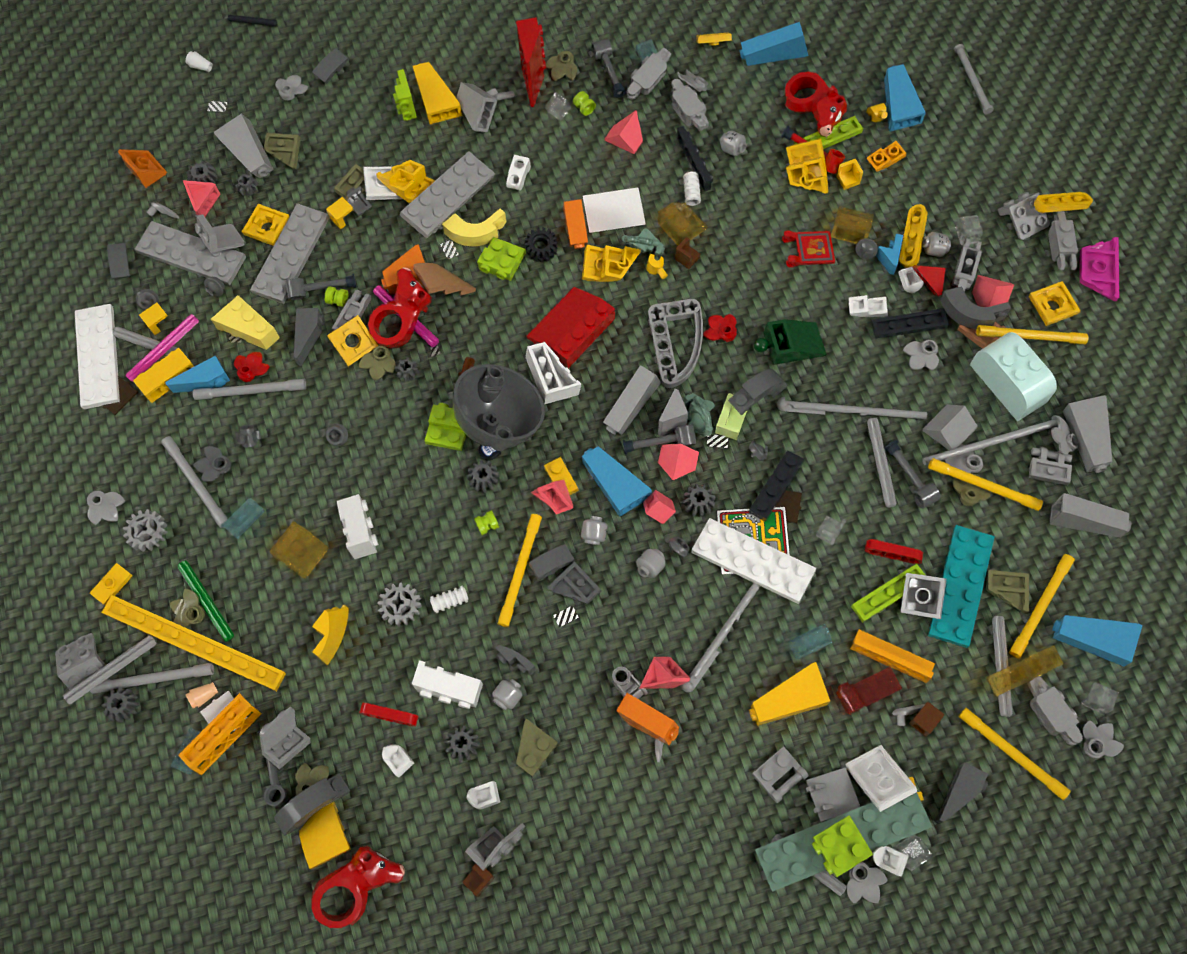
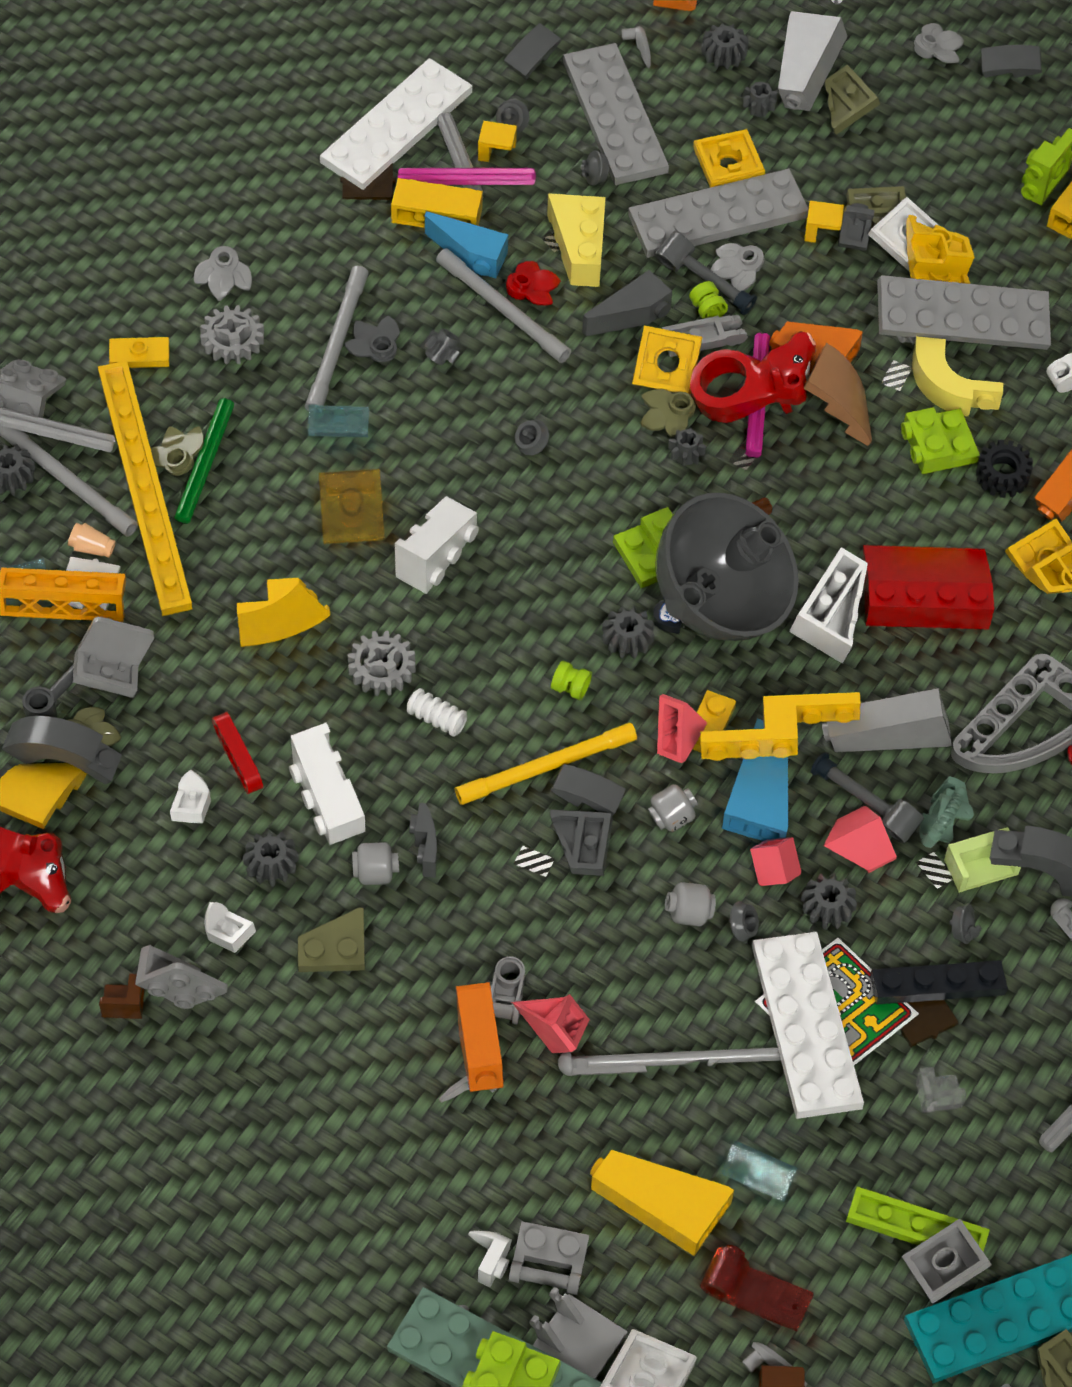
camera: 45 degrees right, 10 degrees down
(202, 195) = (695, 66): coral slope -> none
(218, 237) = (661, 123): light grey bracket -> none
(327, 270) = (735, 267): none -> light grey plate
(599, 449) = (780, 726): none -> yellow bracket
(673, 416) = (911, 779): light grey slope -> none
(765, 802) = (495, 1260): none -> white plate
(893, 656) = (832, 1290): light orange fence -> none
(894, 551) = (981, 1191): red beam -> none

